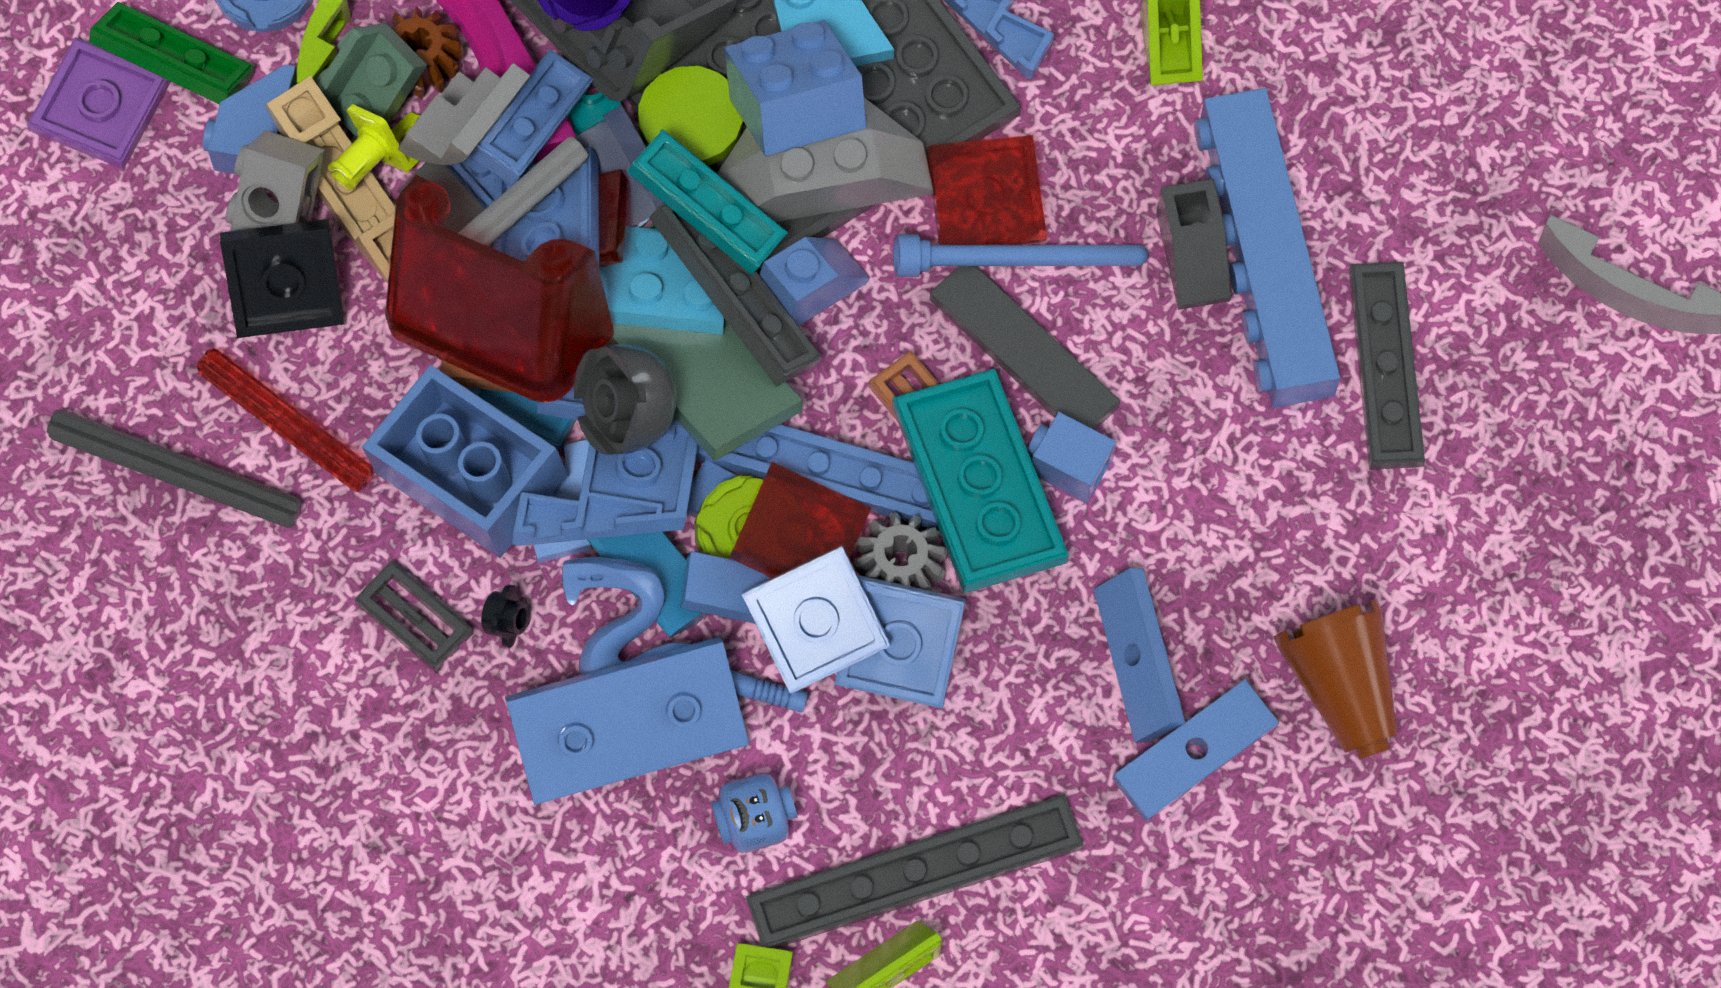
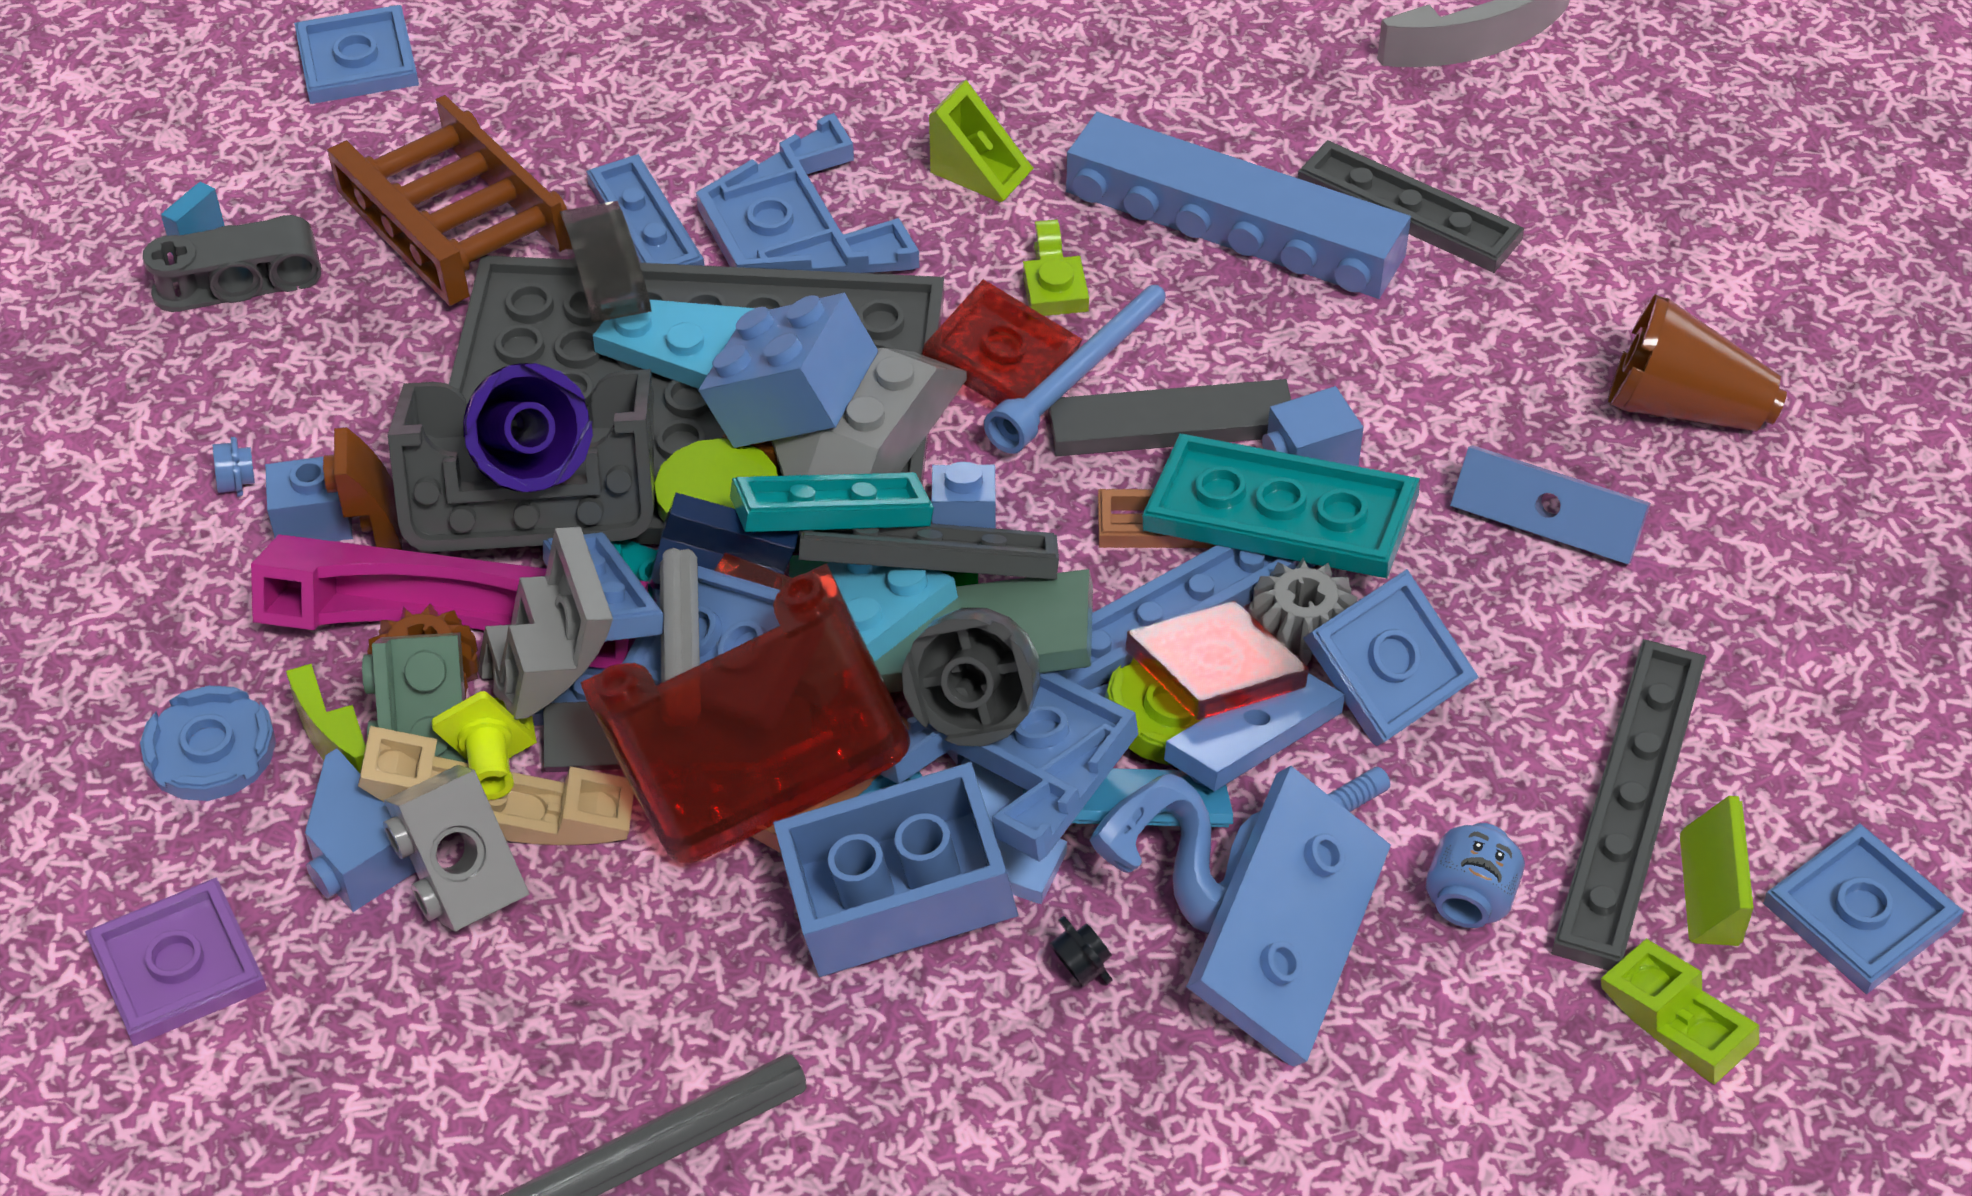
camera: 50 degrees left, 20 degrees down
(170, 53) = (196, 859): green tile -> none
(282, 278) = (544, 902): black plate -> none
(285, 420) = (685, 1015): clear red axle -> none
(447, 646) = (1007, 1050): dark grey tile -> none
(816, 619) = (1324, 689): tile -> none
(1094, 179) = (1052, 281): none -> lime plate
(1194, 243) = (1187, 239): dark grey slope -> none
(1221, 732) = (1677, 523): medium blue tile -> none

